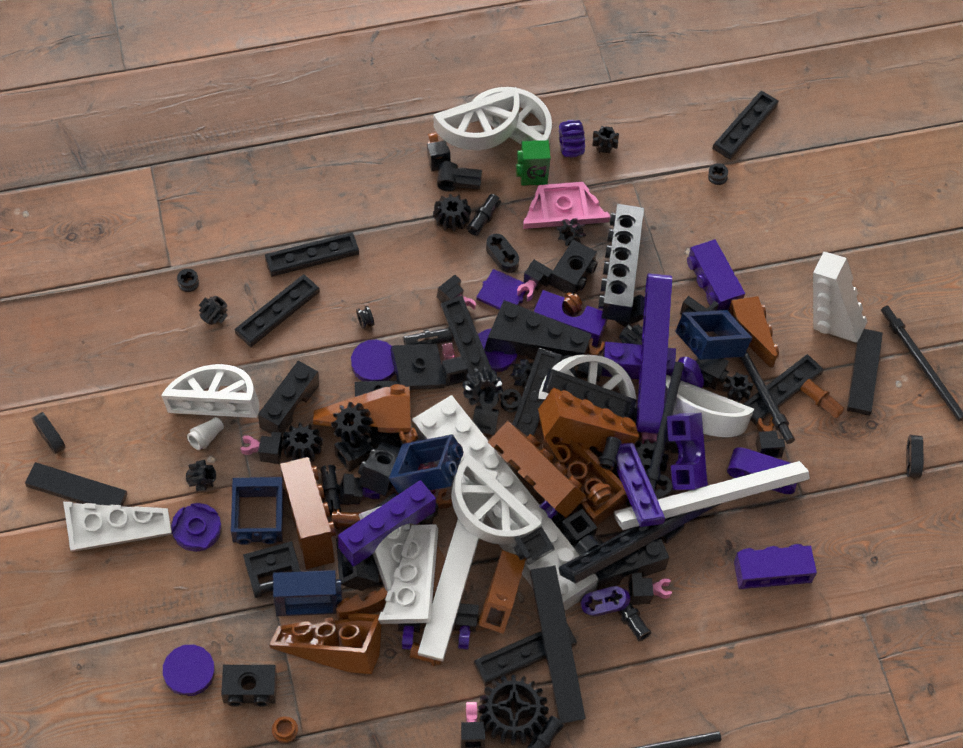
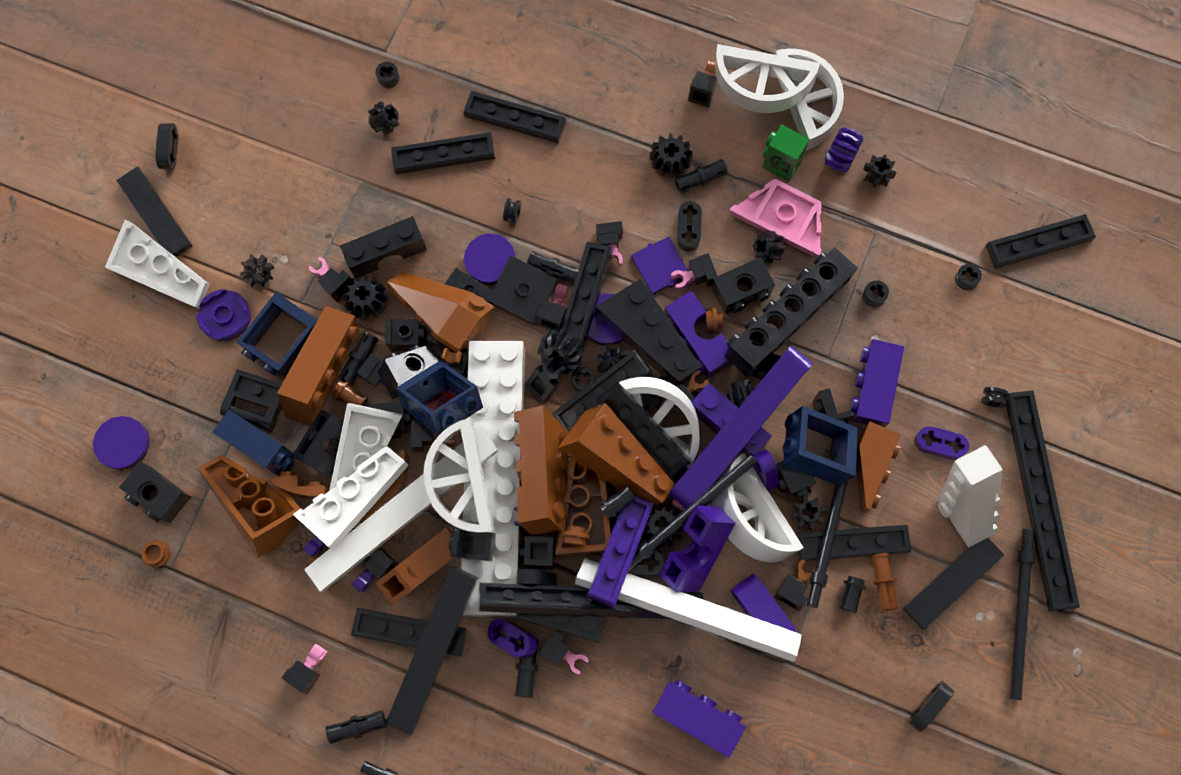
camera: 45 degrees right, 15 degrees up
(187, 396) = (296, 185): white window -> none
(203, 434) = (292, 232): white cone -> none
(361, 422) = (409, 310): black gear -> none
(365, 535) = (381, 429): dark purple arch -> none
(452, 176) = (701, 119): black piece -> none
(503, 710) = (333, 665): black gear -> none
(670, 216) = (884, 292): none -> black bush
(786, 288) = (943, 437): none -> dark purple beam
(797, 238) = (994, 397): none -> black bush
(808, 421) = (852, 594): none -> black pin
(880, 287) = (1041, 501): none -> black tile

